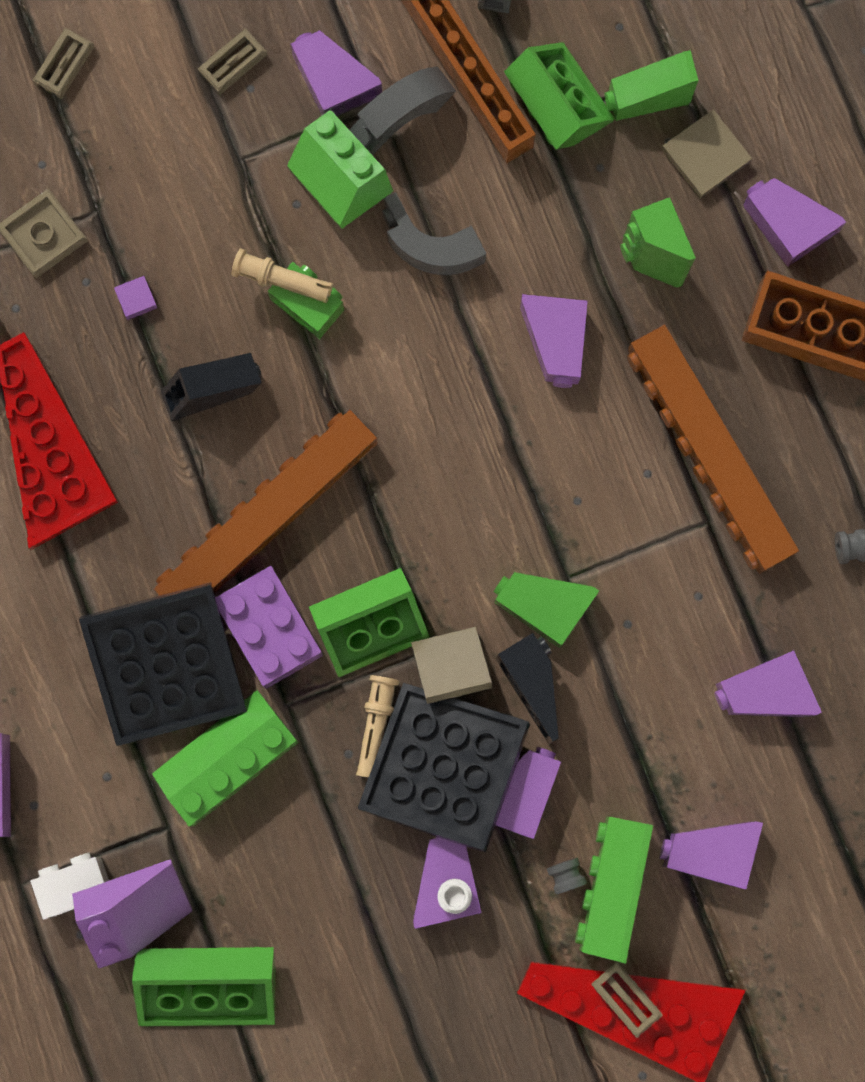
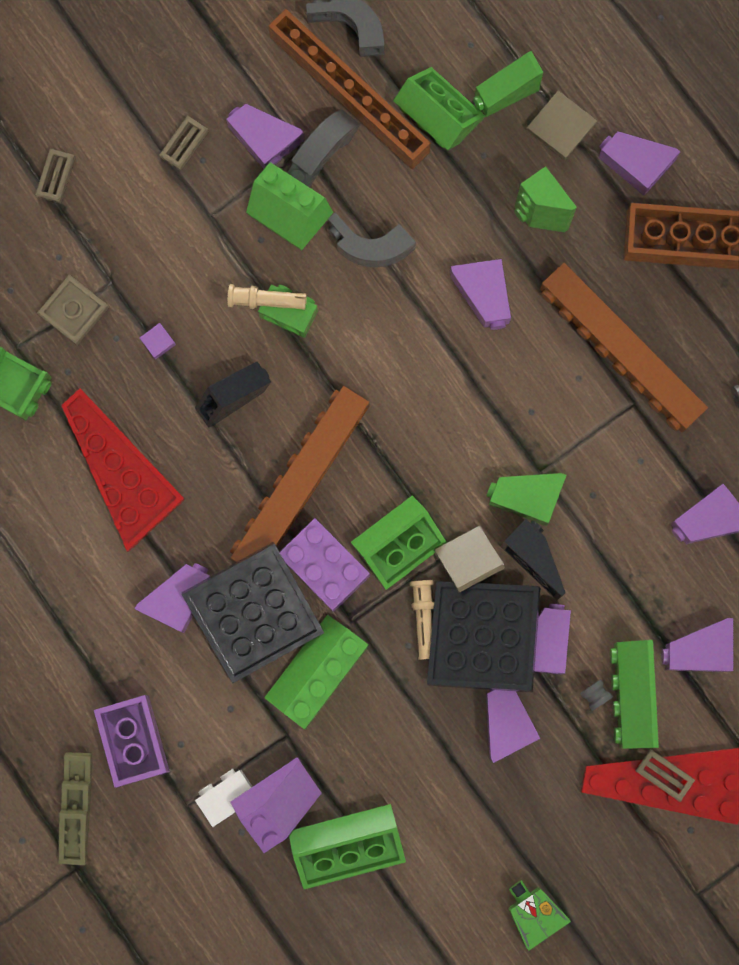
camera: 10 degrees left, 0 degrees up
(59, 624) = (167, 602): none -> medium lavender slope
(454, 896) = (517, 730): white plate -> none

